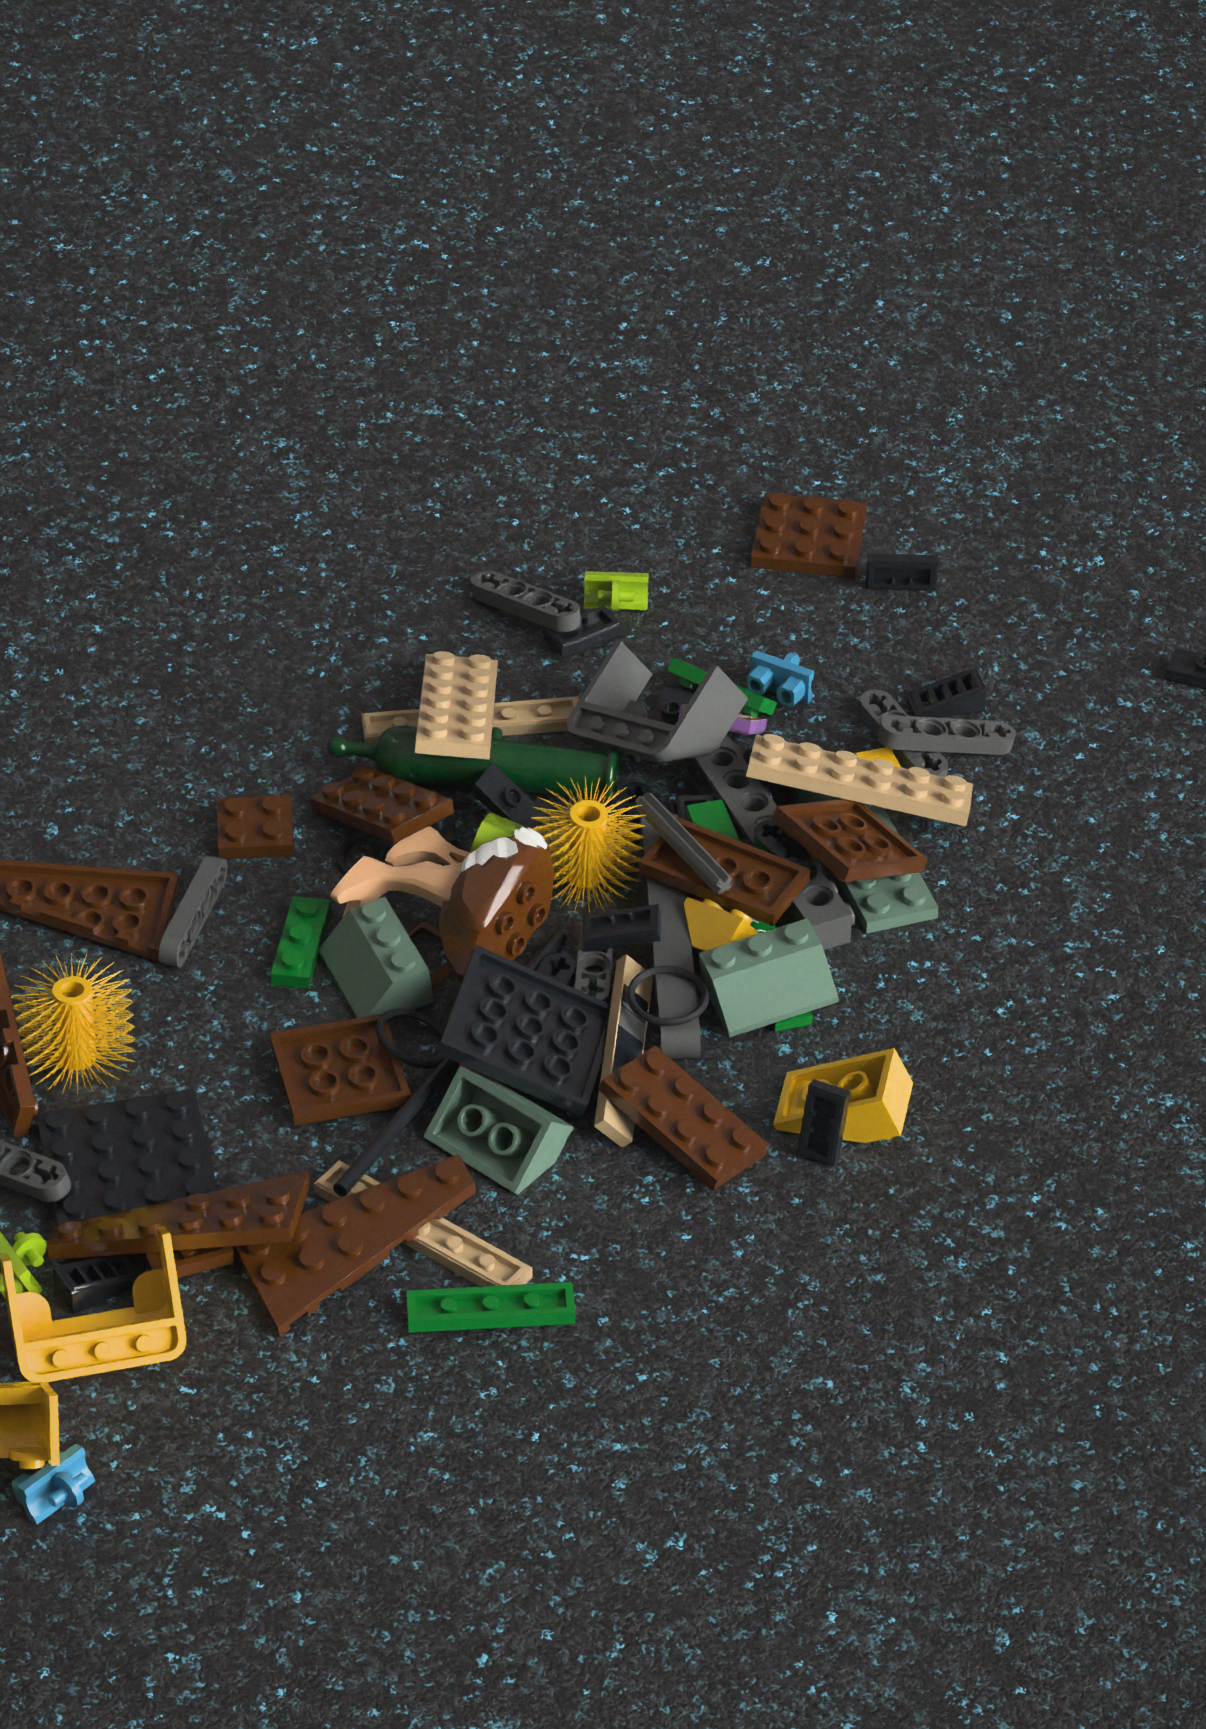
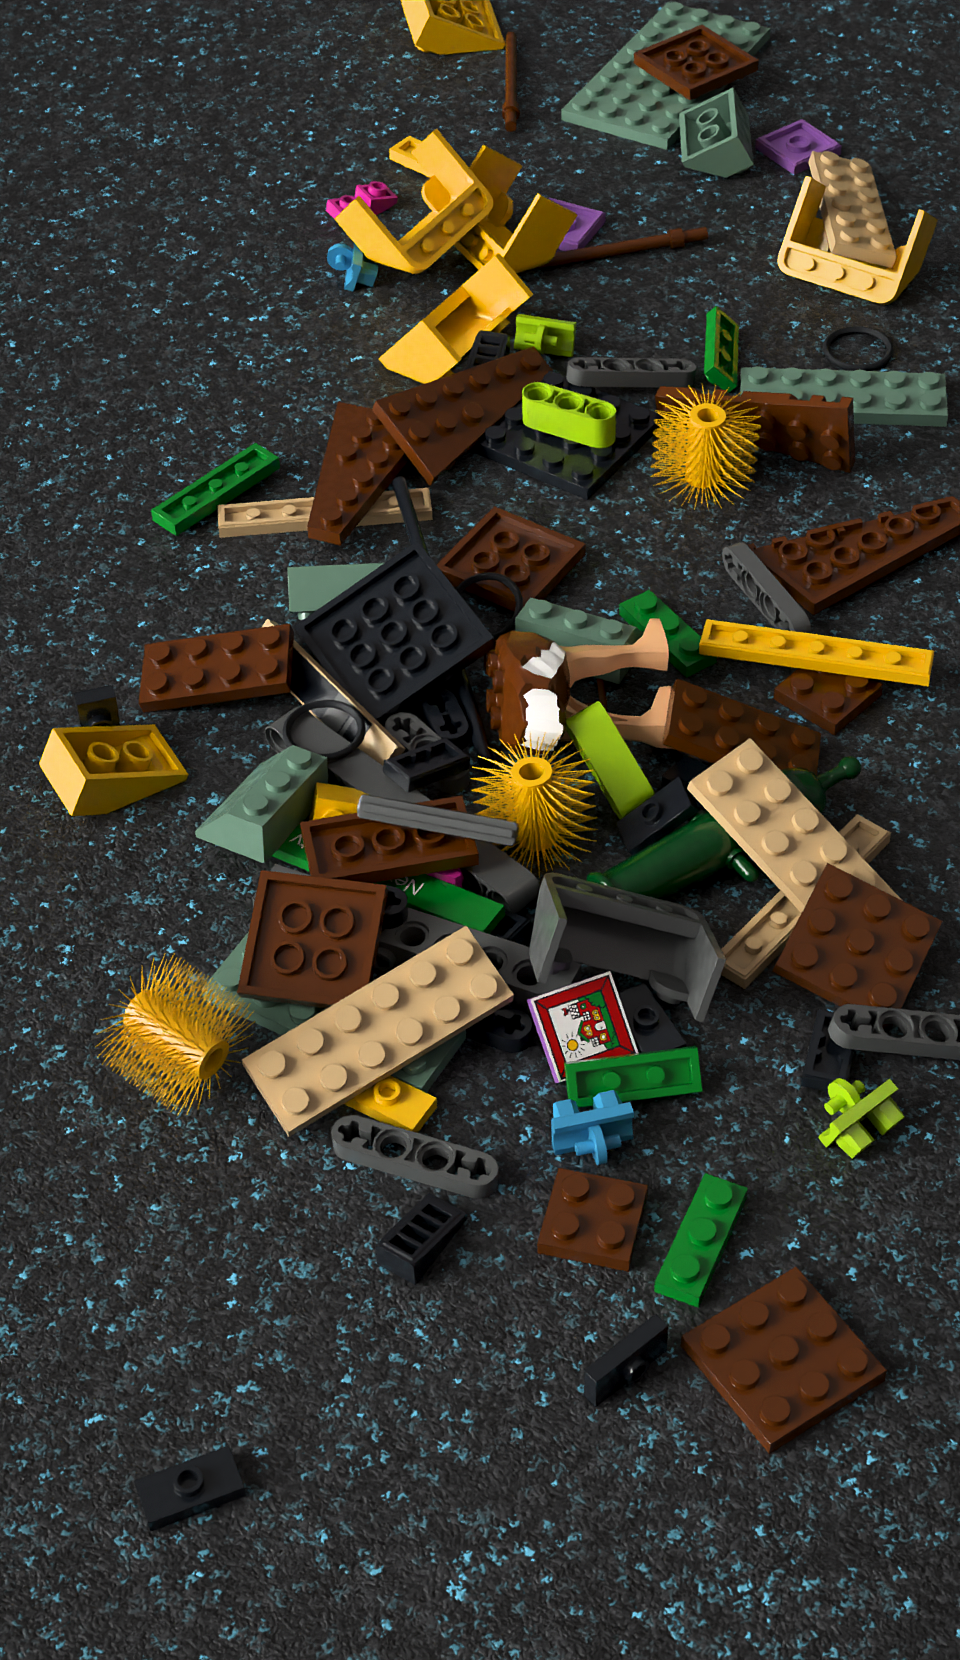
camera: 140 degrees right, 5 degrees up
(134, 1130) = (569, 415): none -> lime beam
(239, 832) = (817, 652): none -> yellow tile
(495, 649) = (857, 943): none -> reddish brown plate
(783, 604) = (701, 1240): none -> green plate
(834, 649) = (592, 1219): none -> reddish brown plate
(946, 735) = (359, 1162): dark grey beam -> none
(1000, 842) = (175, 1033): none -> yellow piece

